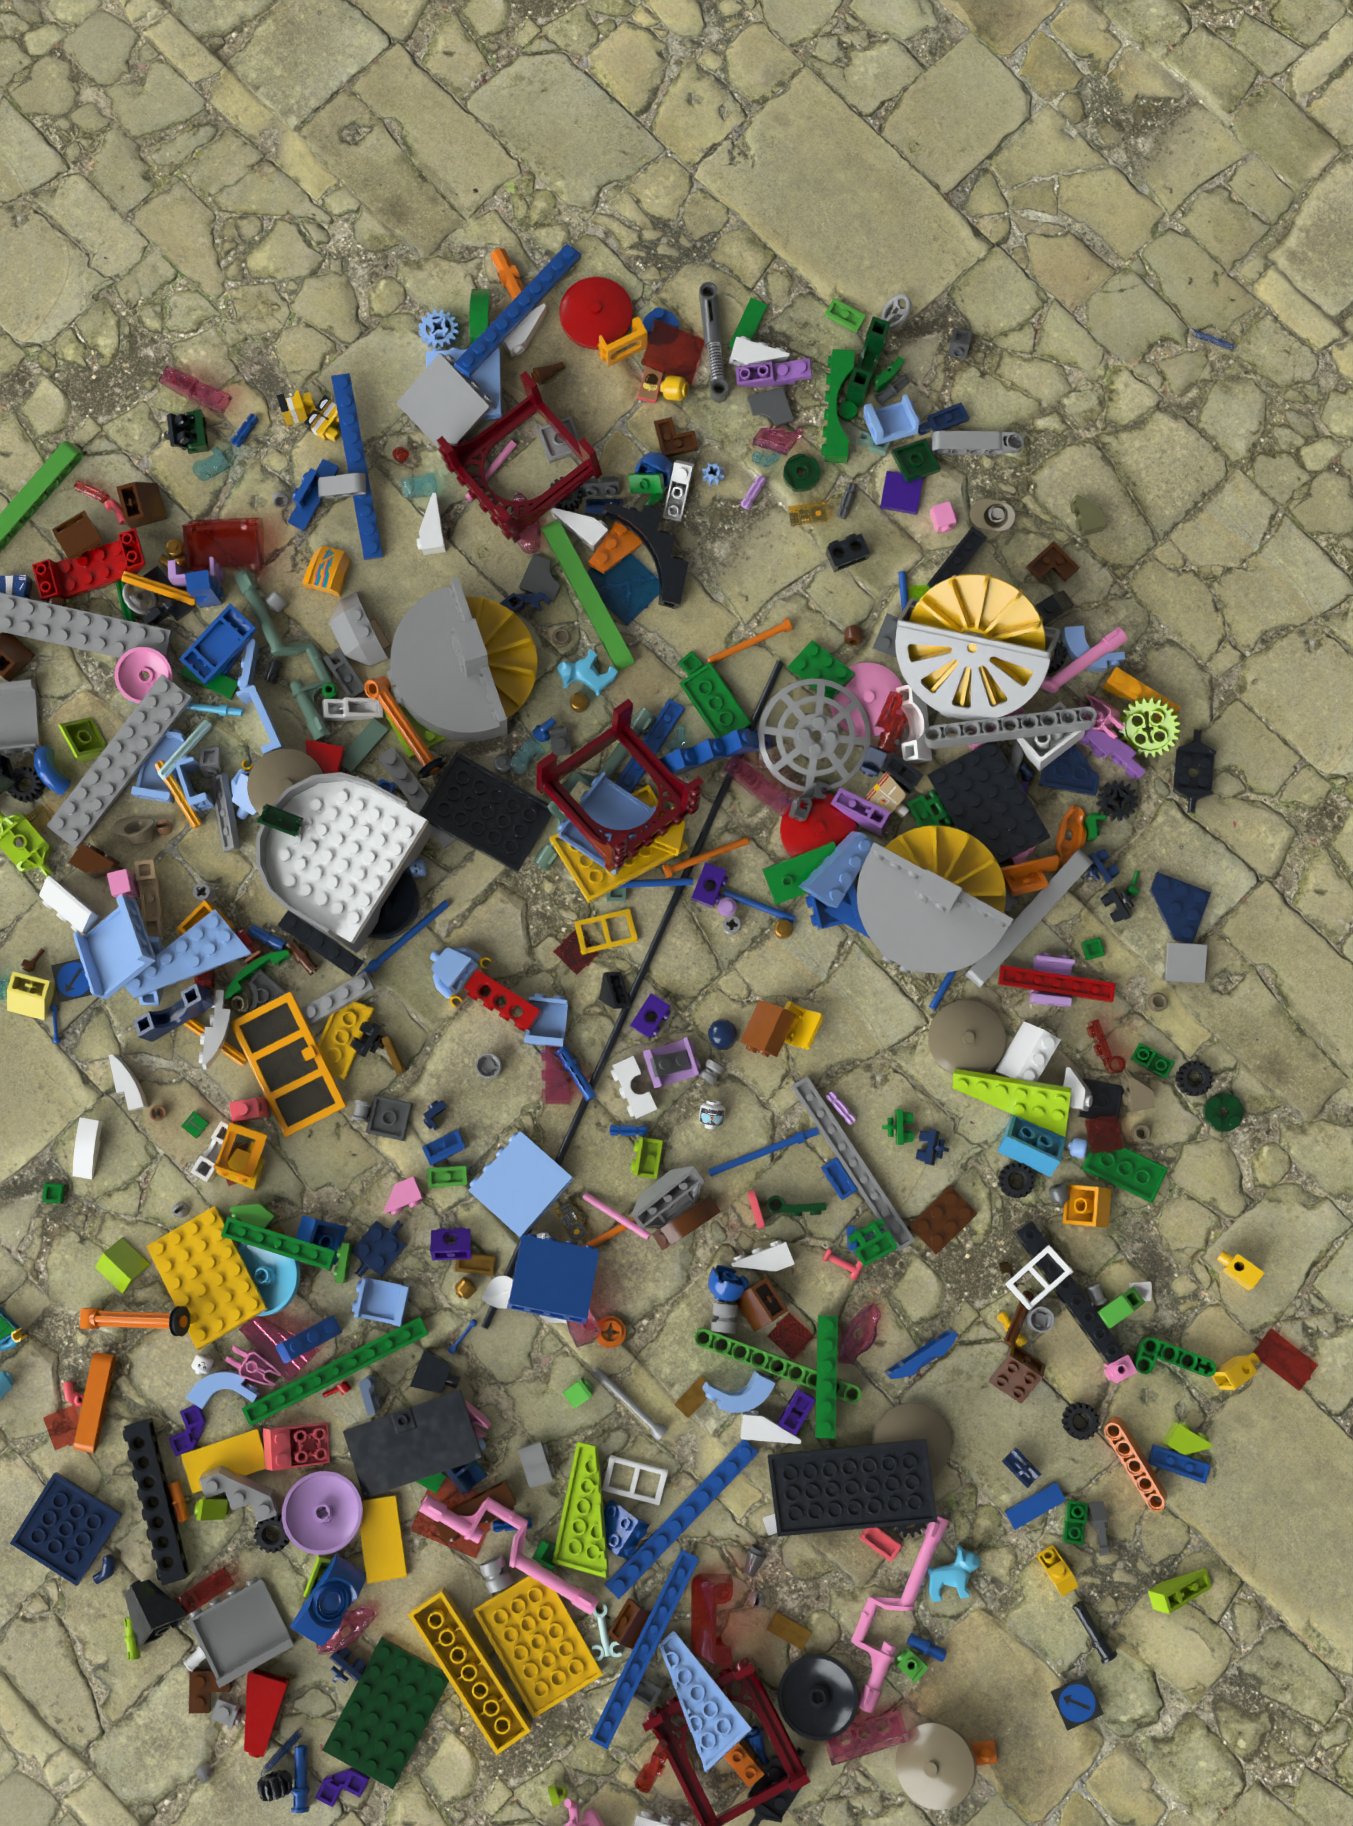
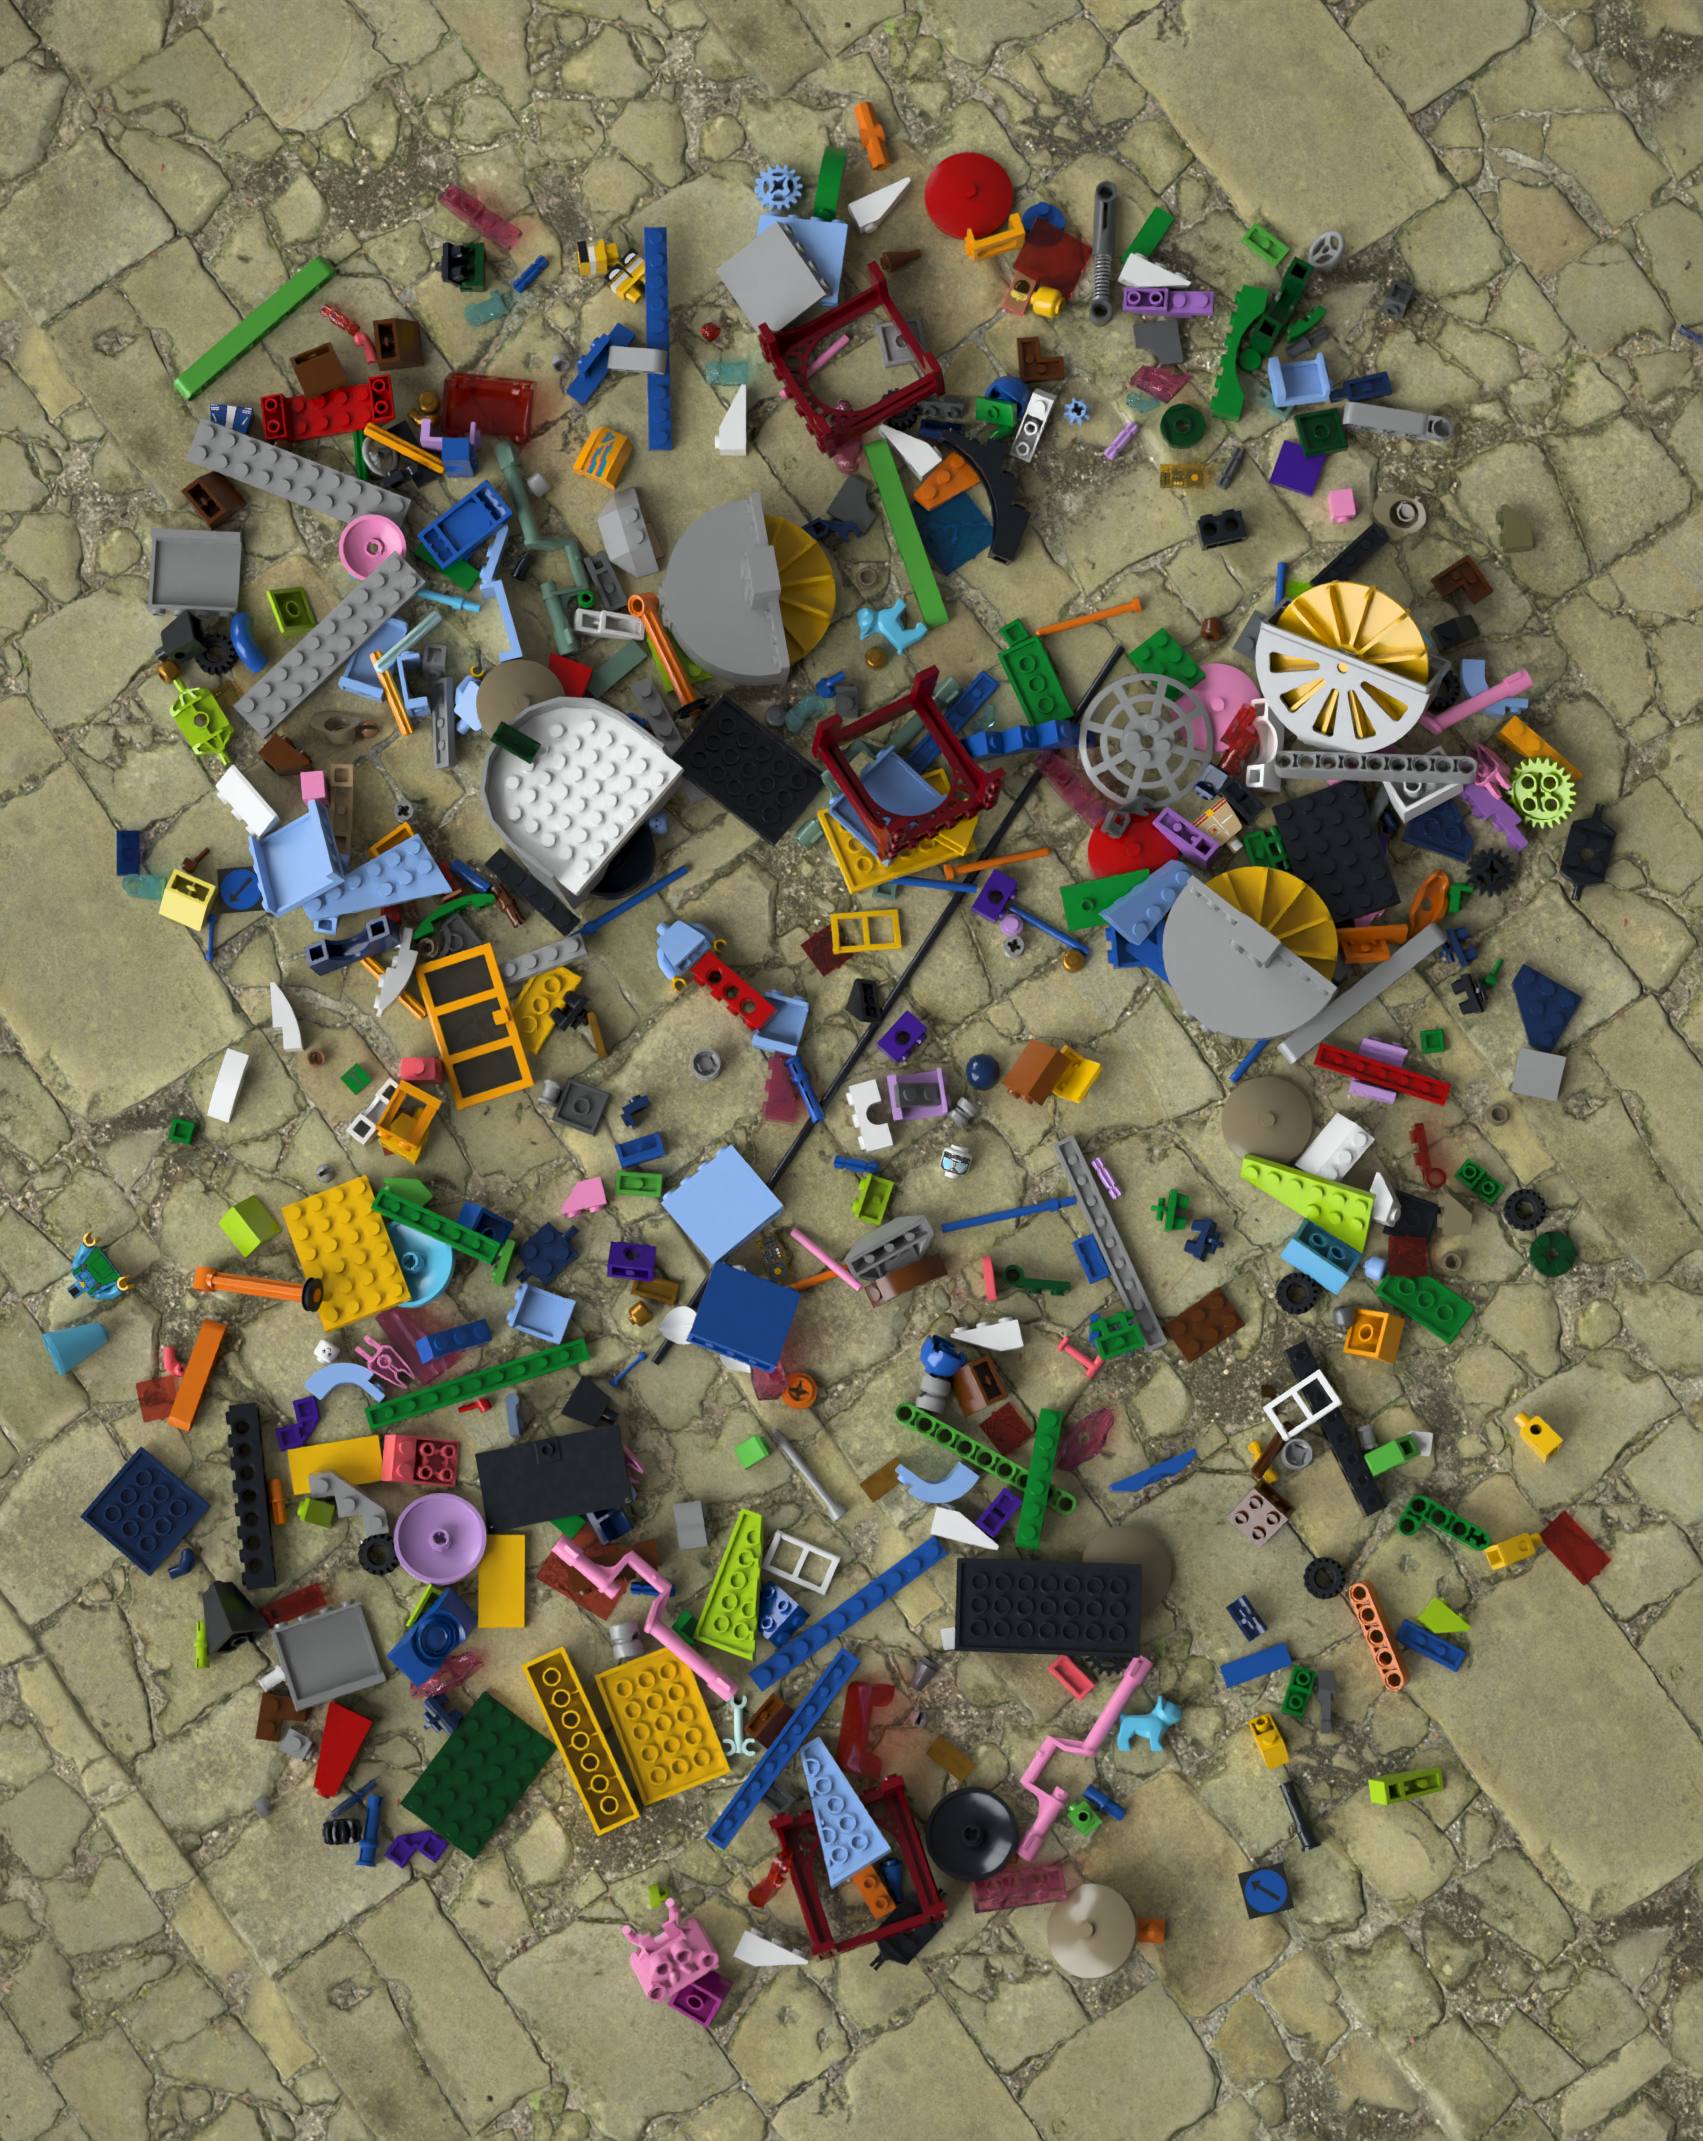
camera: 10 degrees right, 0 degrees up
(517, 310) = (876, 181): blue plate -> none
(1120, 1368) = (1379, 1525): bright pink brick -> none

